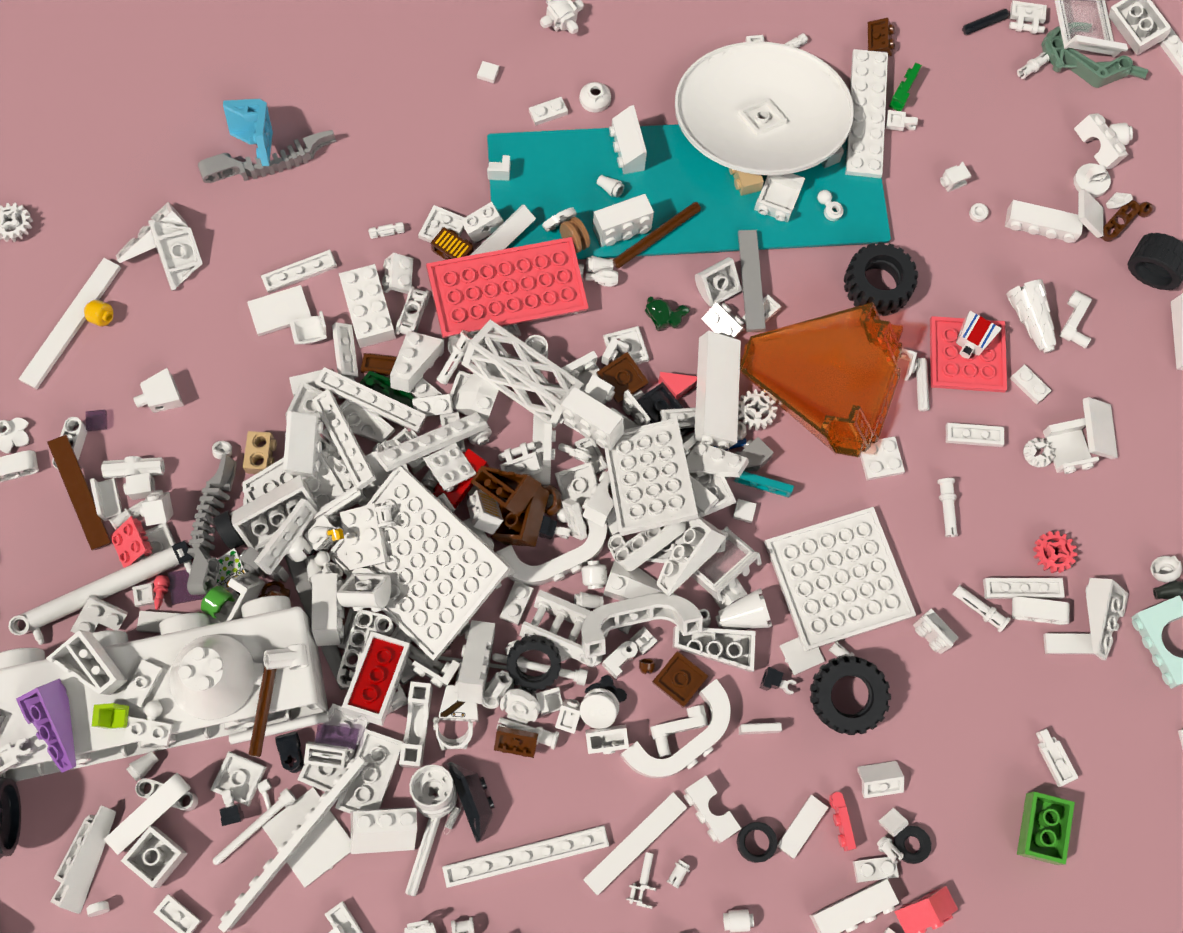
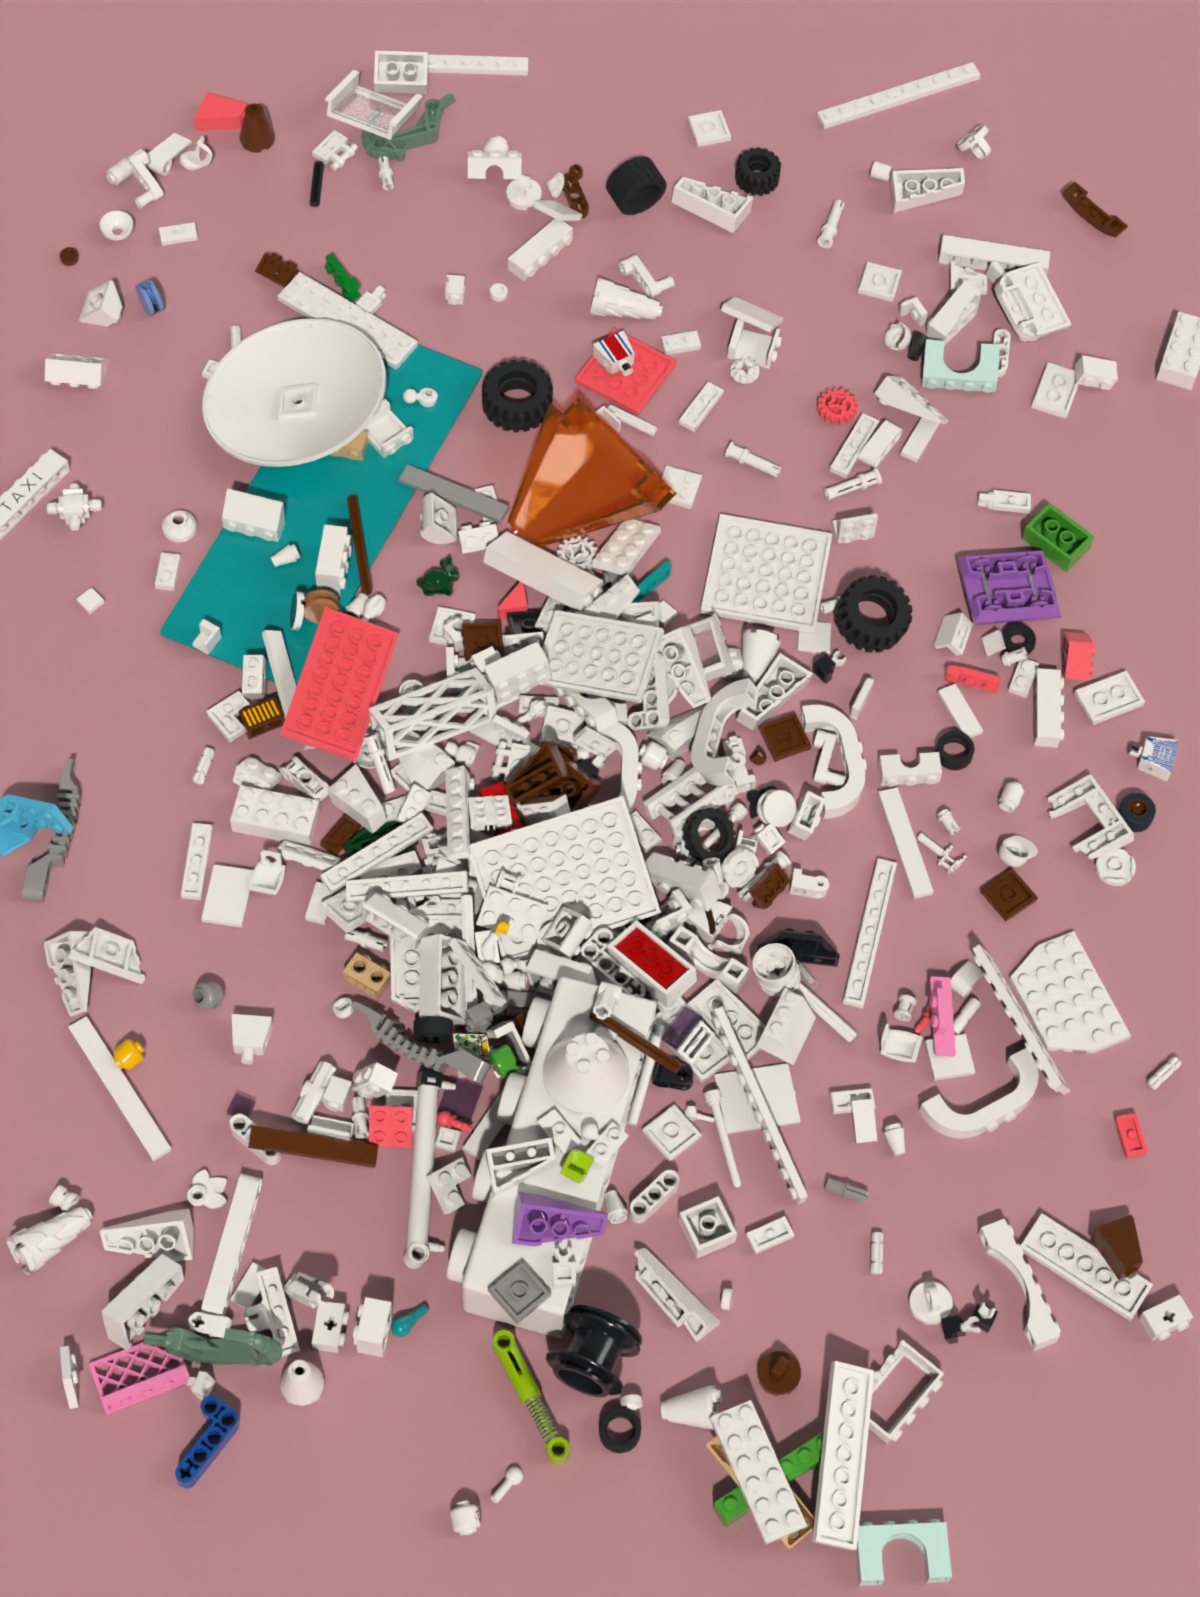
camera: 60 degrees left, 10 degrees down
(147, 813) = (666, 1212): white beam -> none
(177, 342) = (207, 995): none -> light grey head
(231, 813) = (702, 1147): black piece -> none
(507, 420) = (464, 754): none -> white piece
(543, 784) = (808, 885): none -> white leg
(785, 445) = (626, 547): none -> white plate
(960, 808) = (1014, 592): none -> medium lavender piece

